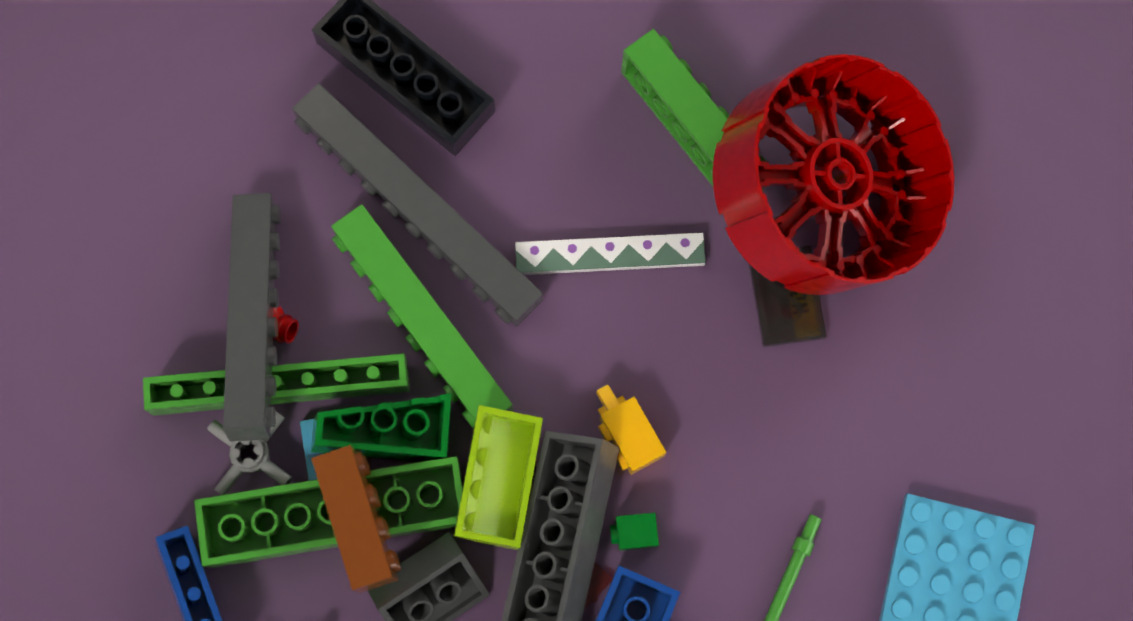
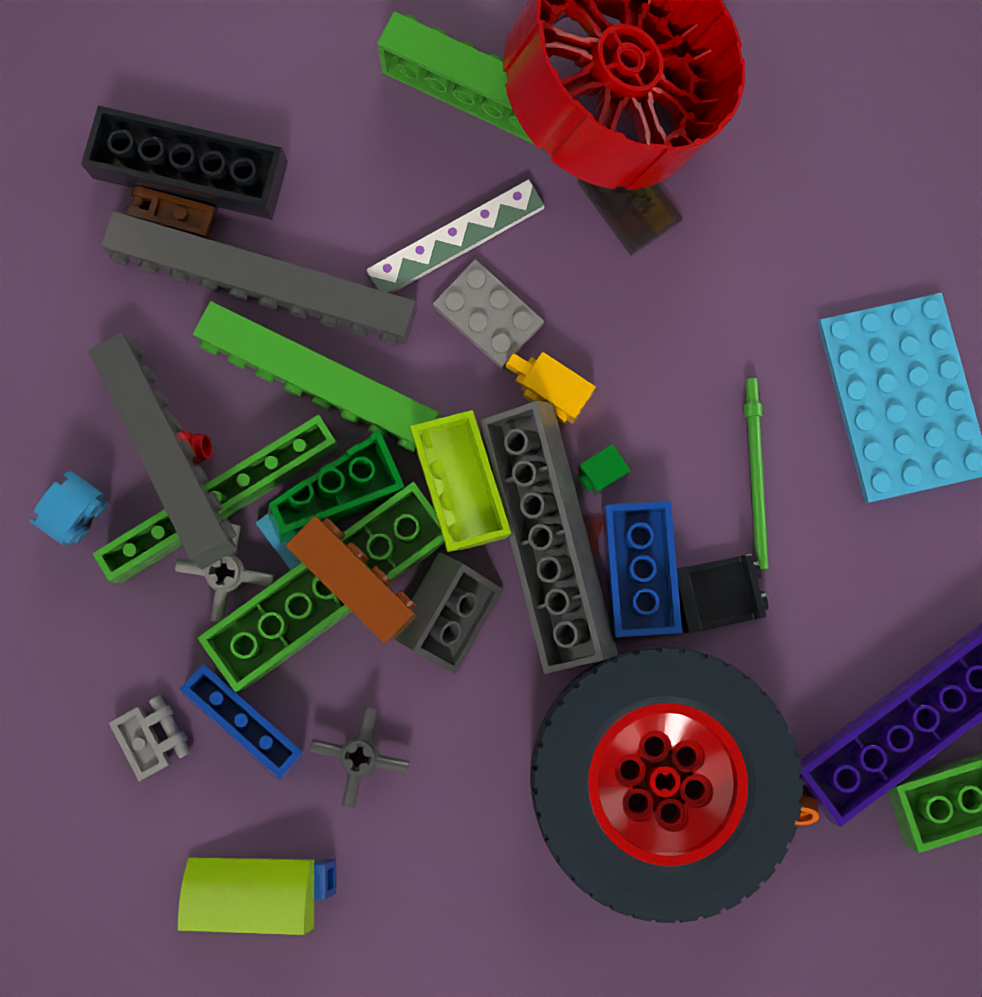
camera: 25 degrees left, 5 degrees up
(96, 568) = (141, 743): none -> light grey plate
(143, 327) = (68, 509): none -> dark azure brick
(369, 107) = (172, 211): none -> reddish brown plate
(605, 336) = (488, 313): none -> light grey plate

